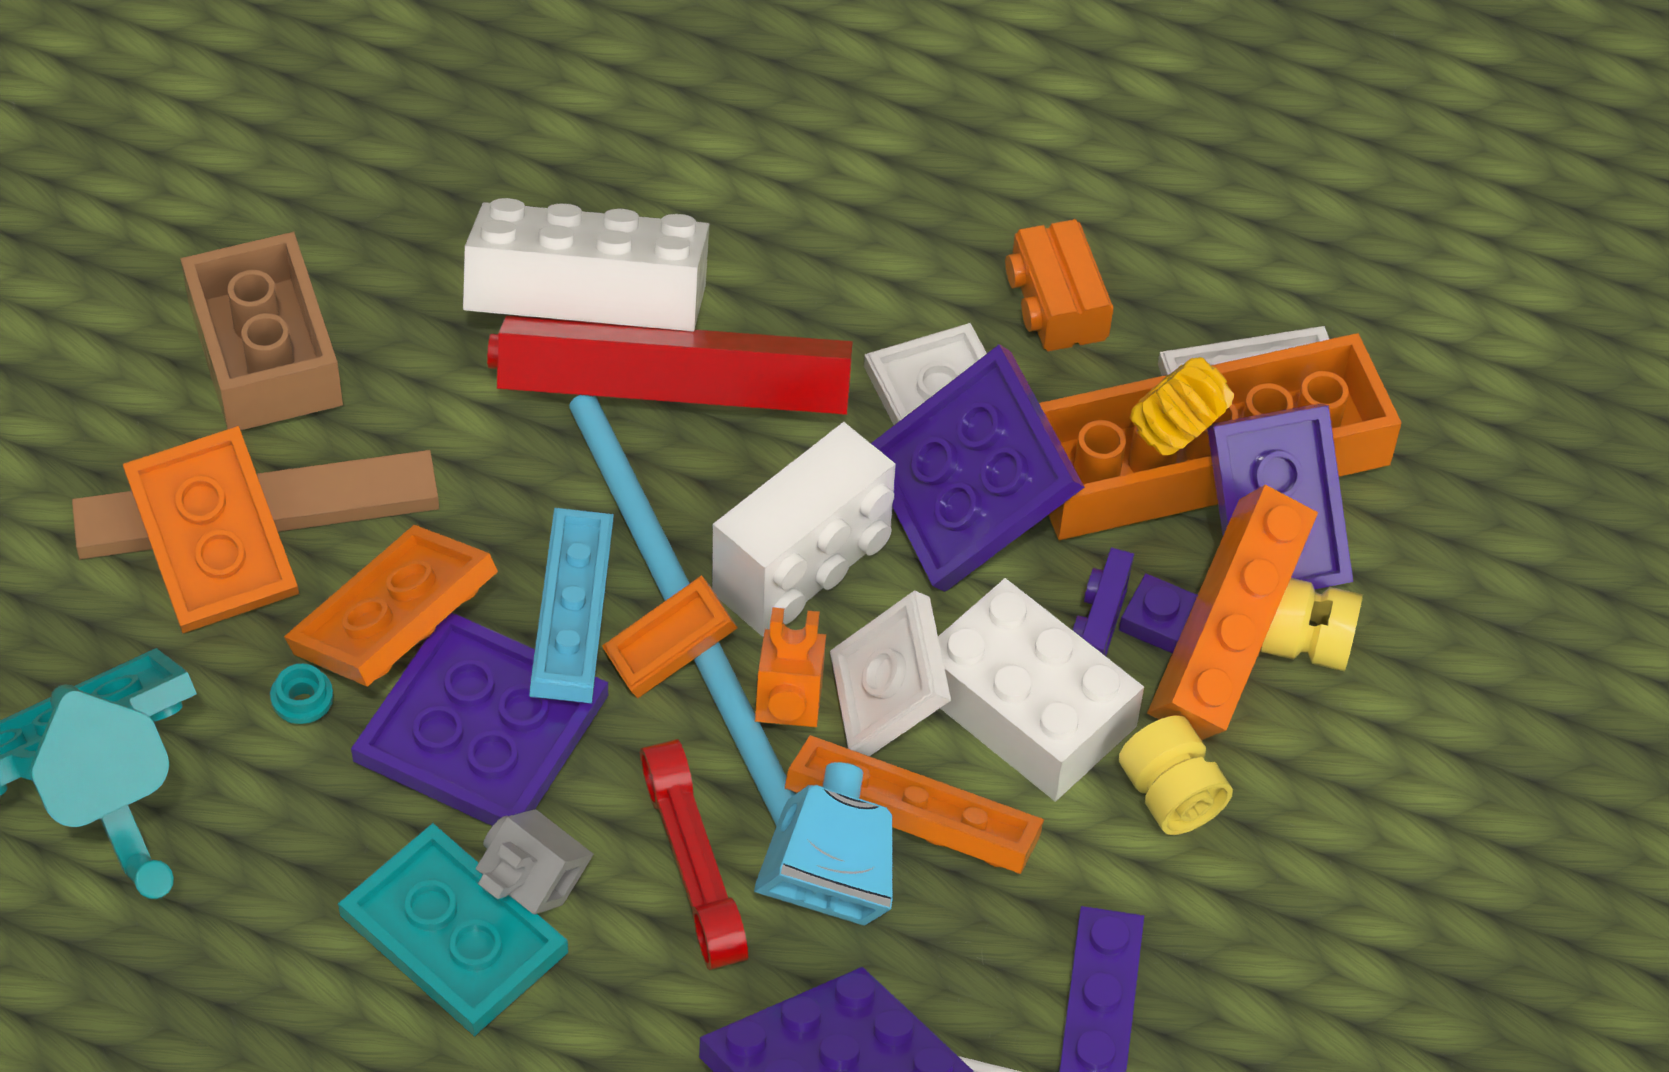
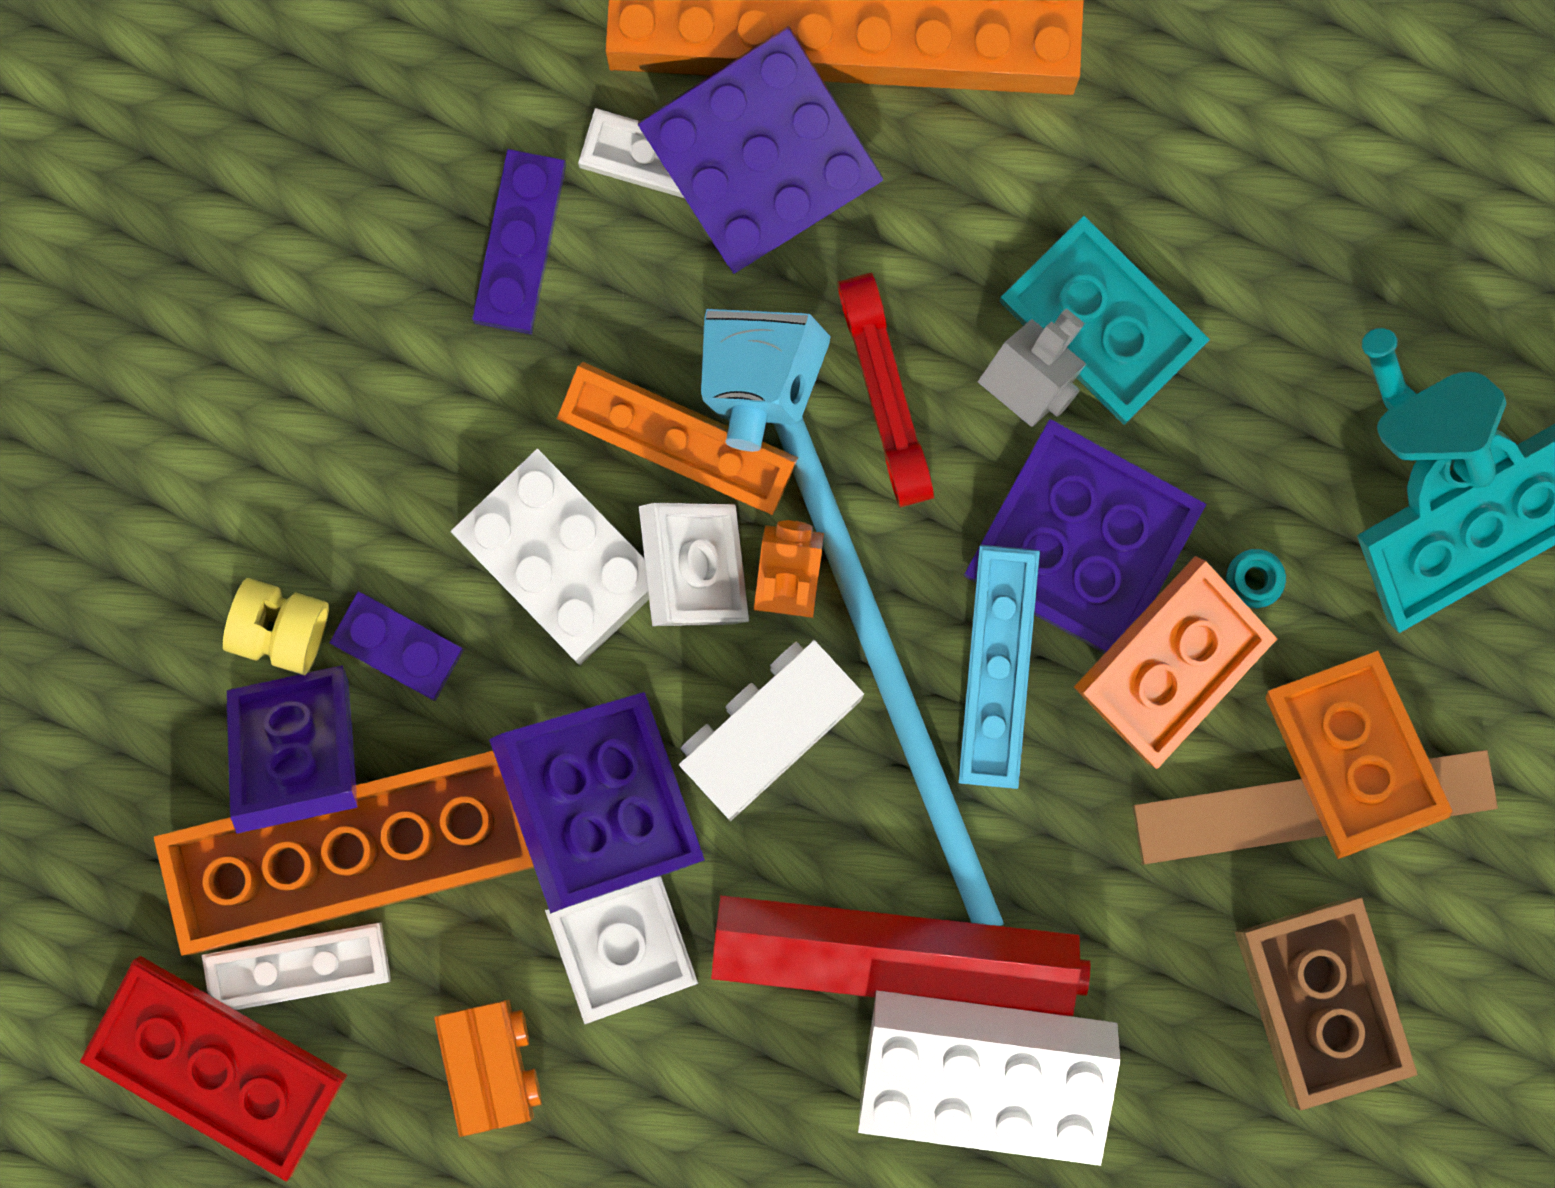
camera: 175 degrees left, 30 degrees up
(669, 637) = (904, 628): orange tile -> none
(1107, 594) = (490, 623): dark purple plate -> none
(1171, 770) = (428, 456): light yellow wheel -> none
(1182, 406) = (381, 819): yellow gear -> none
(1233, 611) = (354, 612): orange brick -> none
(1315, 284) = (213, 1068): none -> red tile

